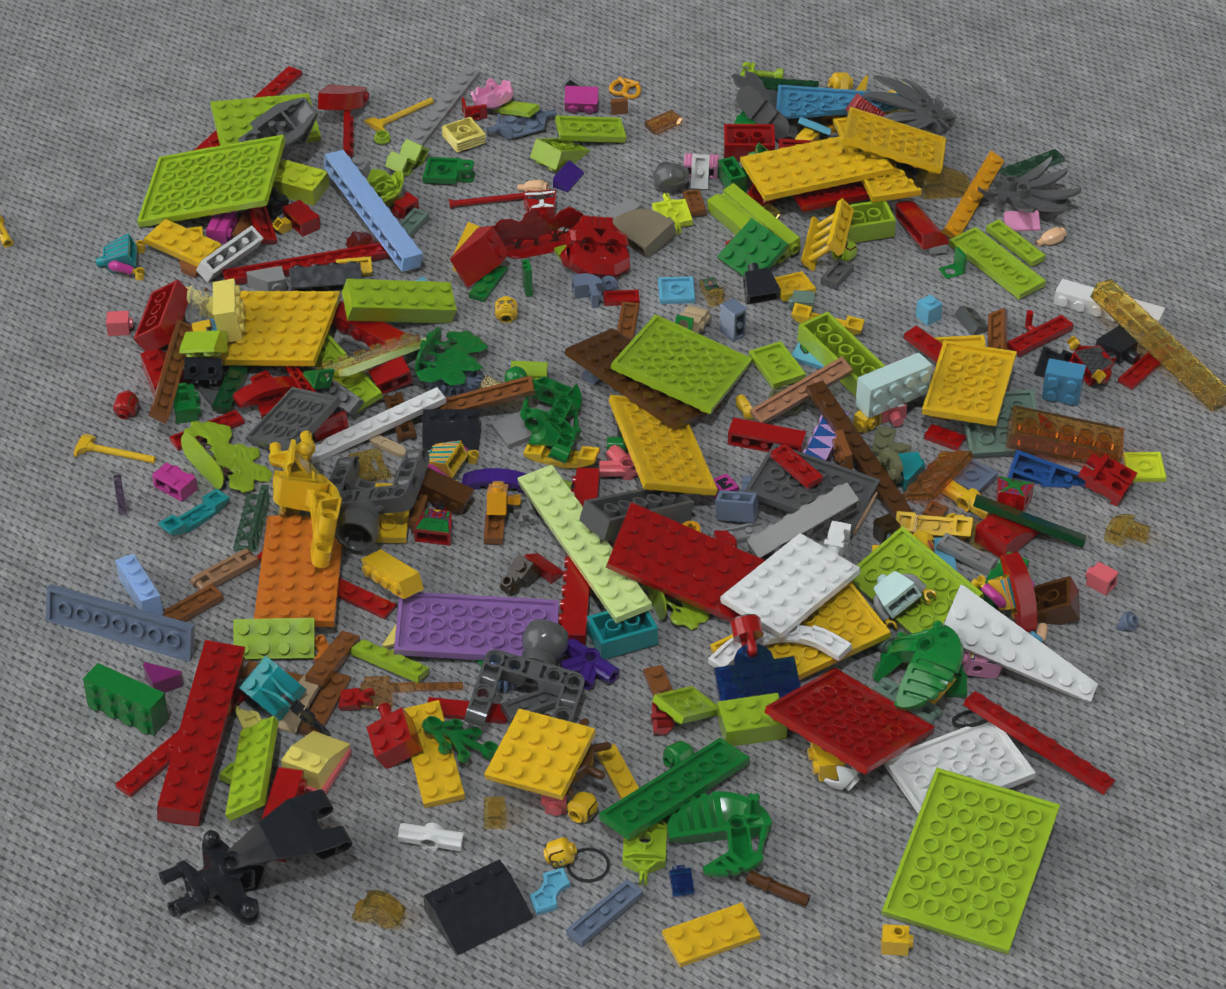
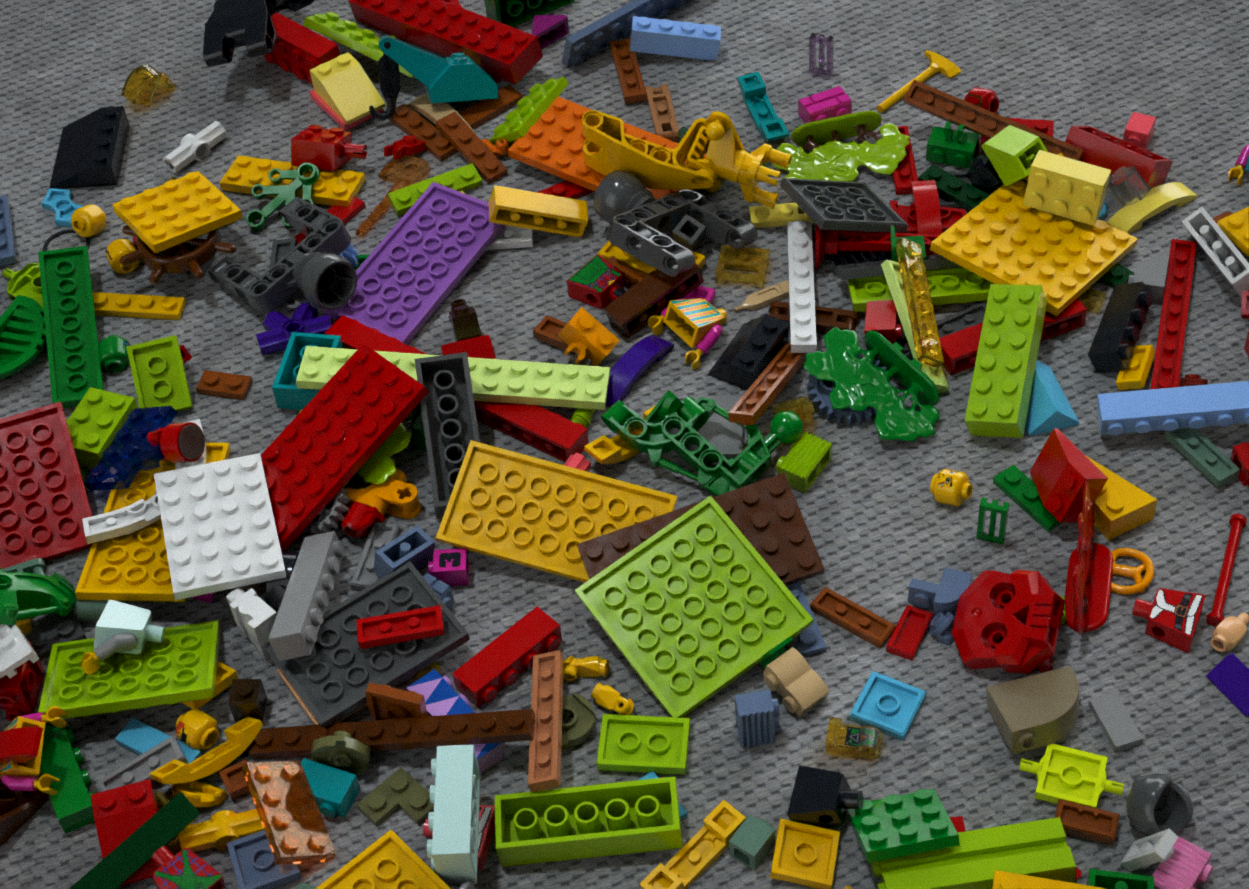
camera: 125 degrees right, 5 degrees up
(760, 386) = (610, 699): none -> yellow arm

